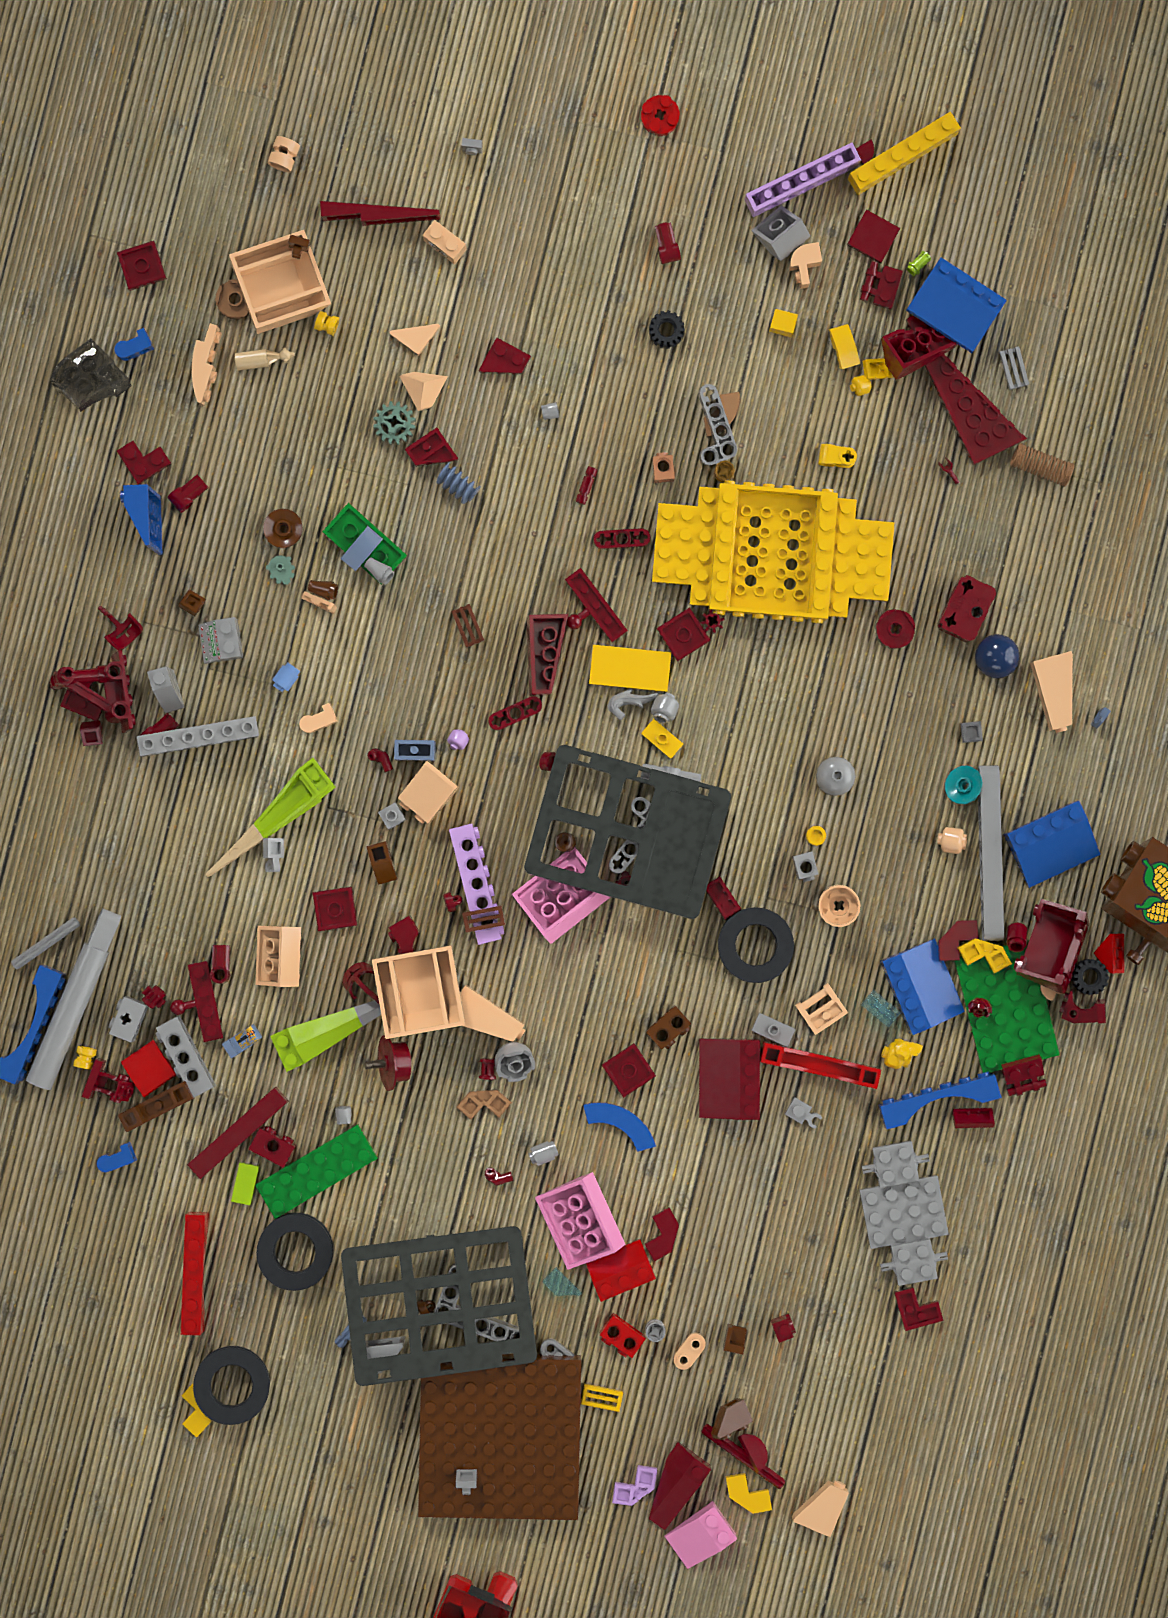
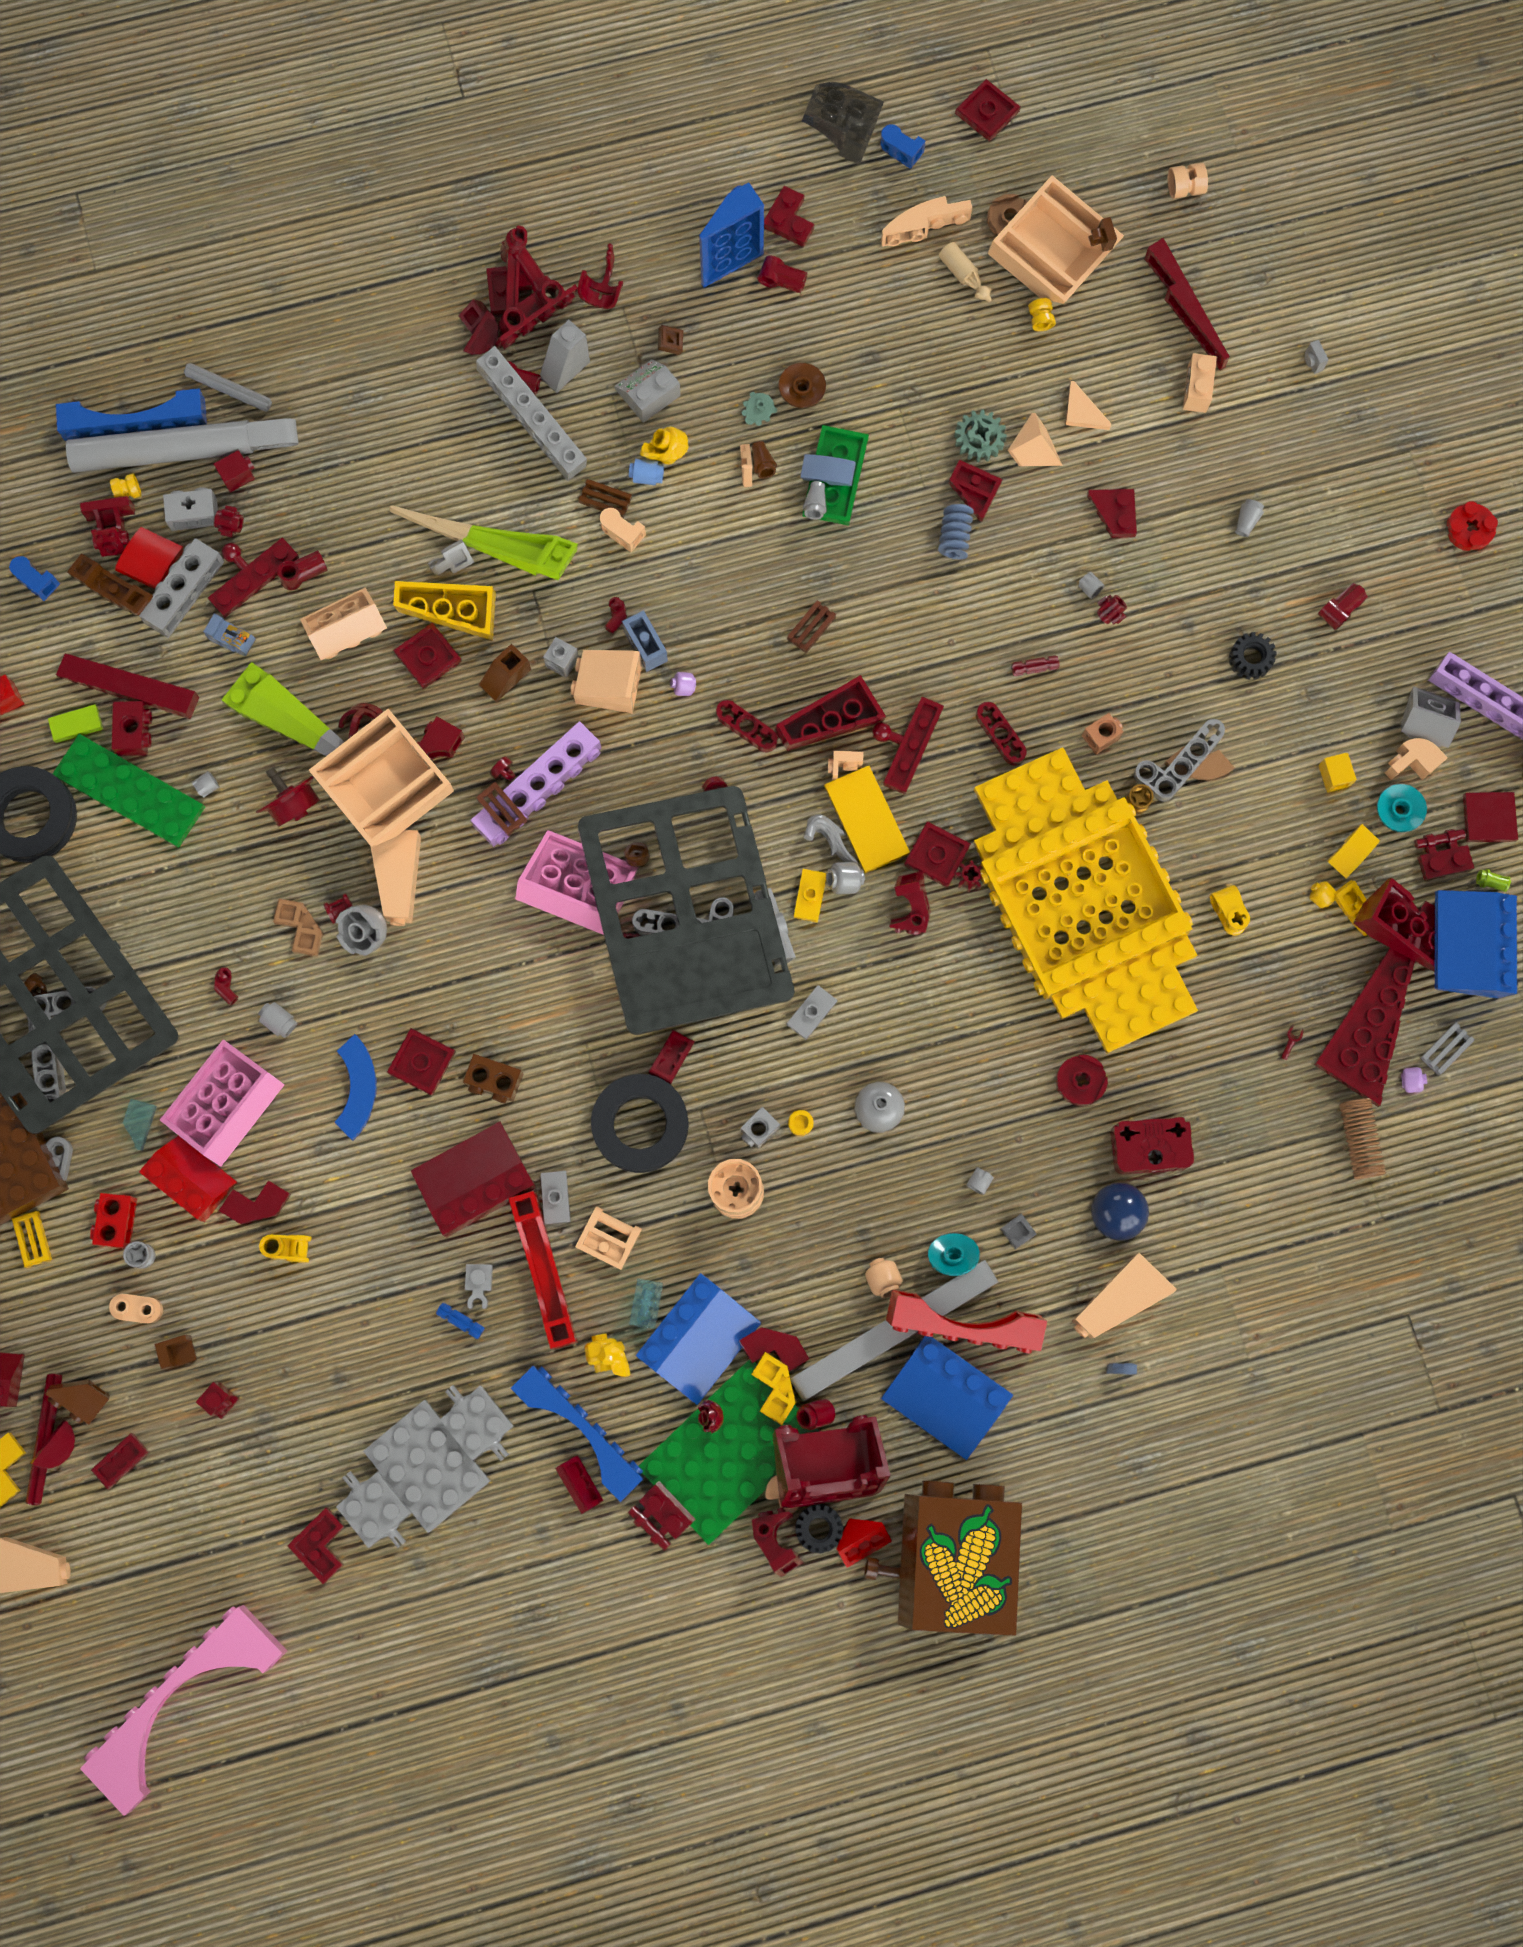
camera: 60 degrees right, 10 degrees down
(112, 736) = (484, 336): none -> dark red tile
(116, 971) = (235, 470): none -> dark red brick
(274, 653) = (666, 445): none -> yellow head
(283, 721) = (607, 490): none -> reddish brown tile
(311, 871) = (450, 605): none -> yellow wedge
(564, 269) = (1248, 517): none -> light grey cone
(577, 408) = (1111, 609): none -> dark red gear
(582, 657) = (847, 759): none -> light nougat bracket
(701, 667) = (912, 888): none -> dark red tile
(706, 1227) = (291, 1247): none -> yellow piece
(744, 784) = (812, 1012): none -> light grey plate
(786, 1412) = (120, 1461): none -> dark red plate
(820, 1138) = (460, 1320): none -> blue axle
(837, 285) = (1410, 801): none -> teal dish
(924, 738) = (980, 1181): none -> light grey hose
(982, 1510) = (120, 1762): none -> bright pink arch
(1021, 404) = (1413, 1079): none -> lavender piece
(1036, 774) = (1016, 1330): none -> arch

